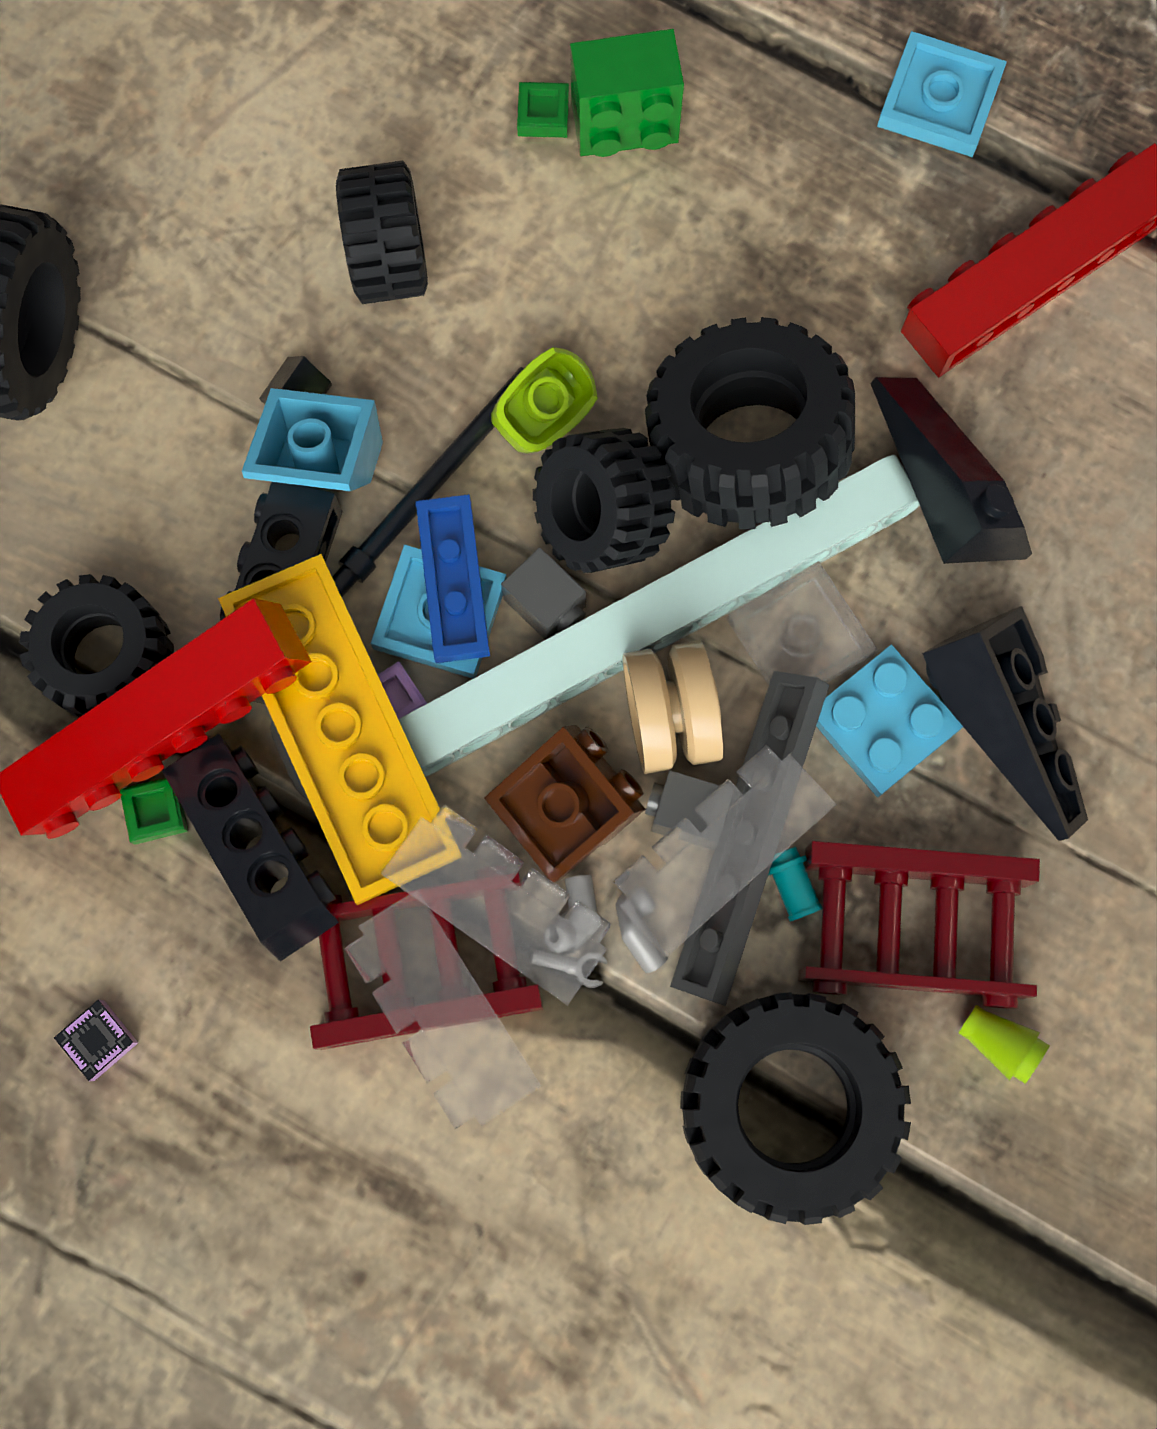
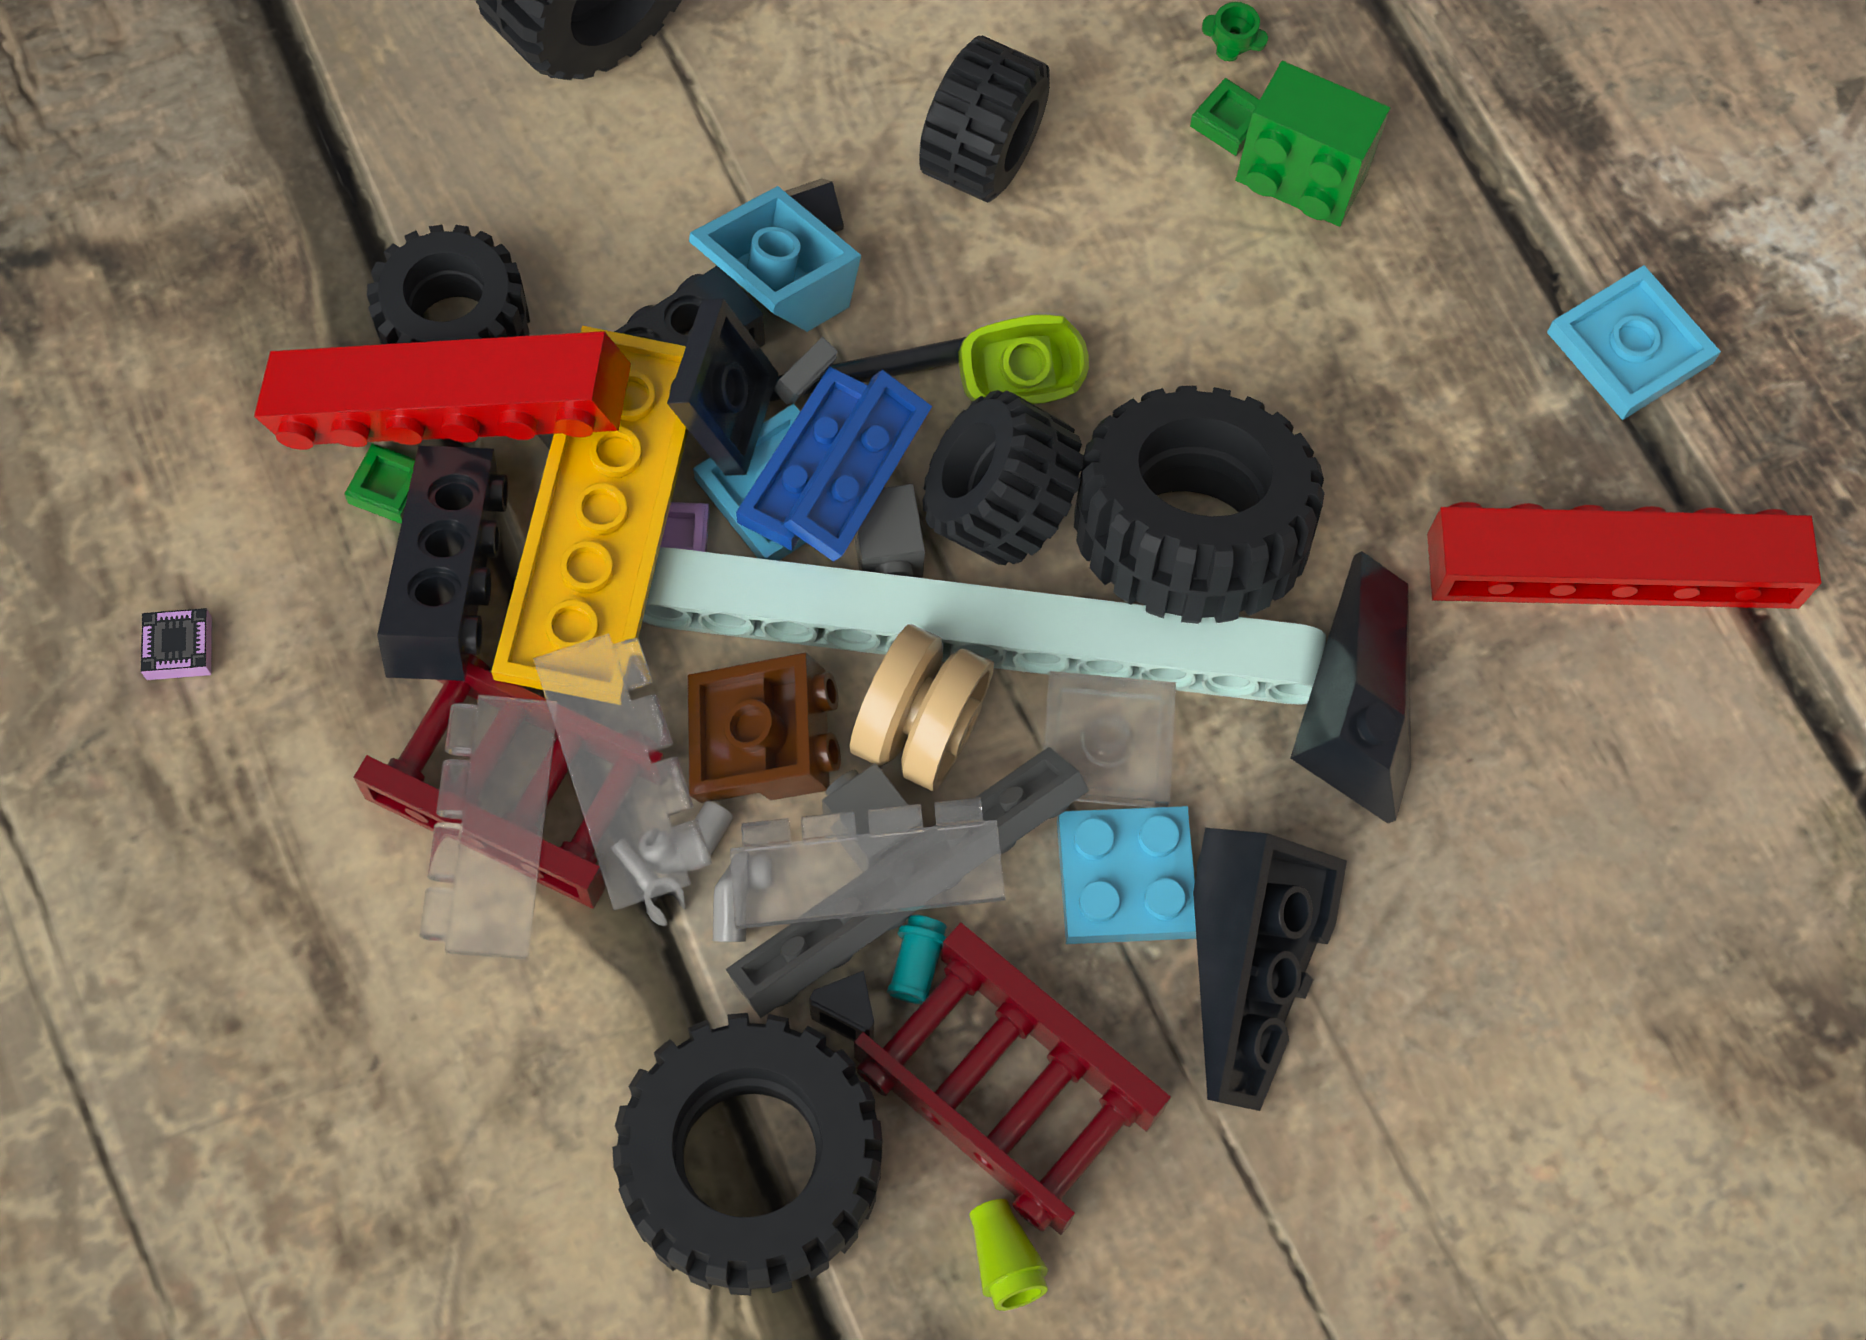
camera: 30 degrees right, 10 degrees down
(355, 572) = (723, 387): none -> black plate
(399, 515) = (806, 371): none -> dark grey tile
(496, 563) = (857, 466): none -> blue plate
(499, 28) = (1235, 18): none -> green plate
(776, 954) = (844, 1007): none -> black slope

